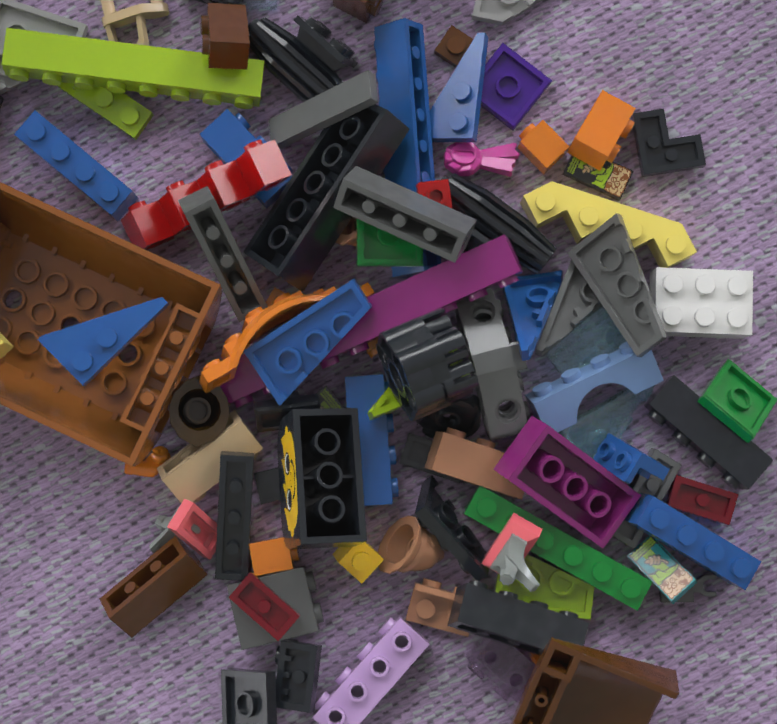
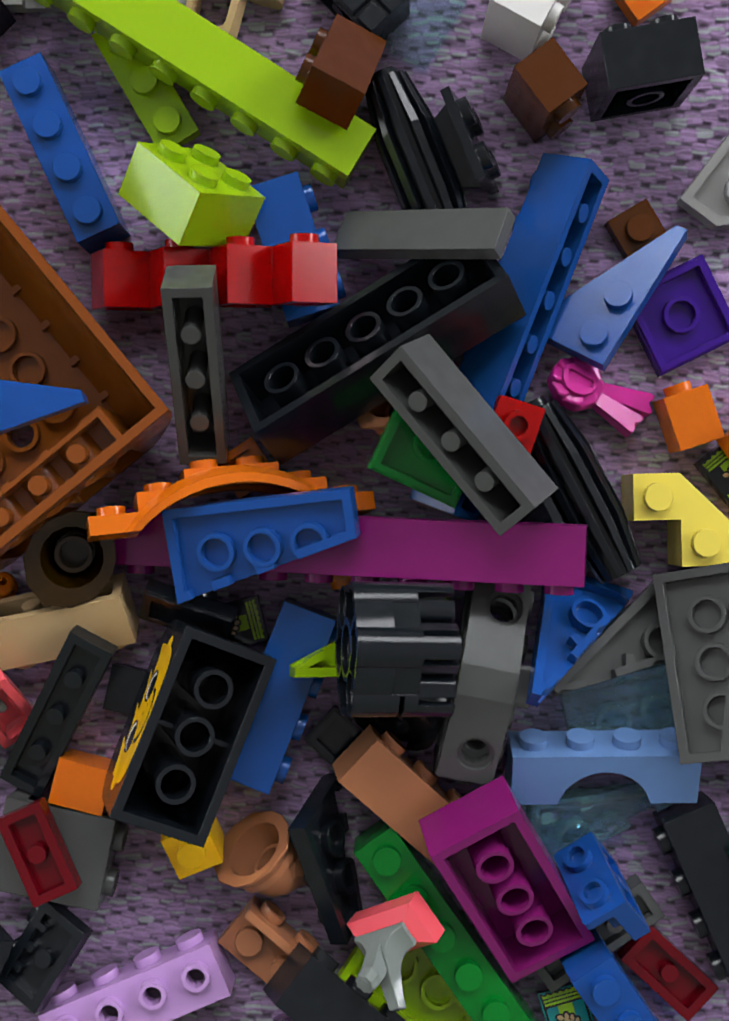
camera: 30 degrees right, 5 degrees up
(169, 151) = (190, 193): none -> lime brick

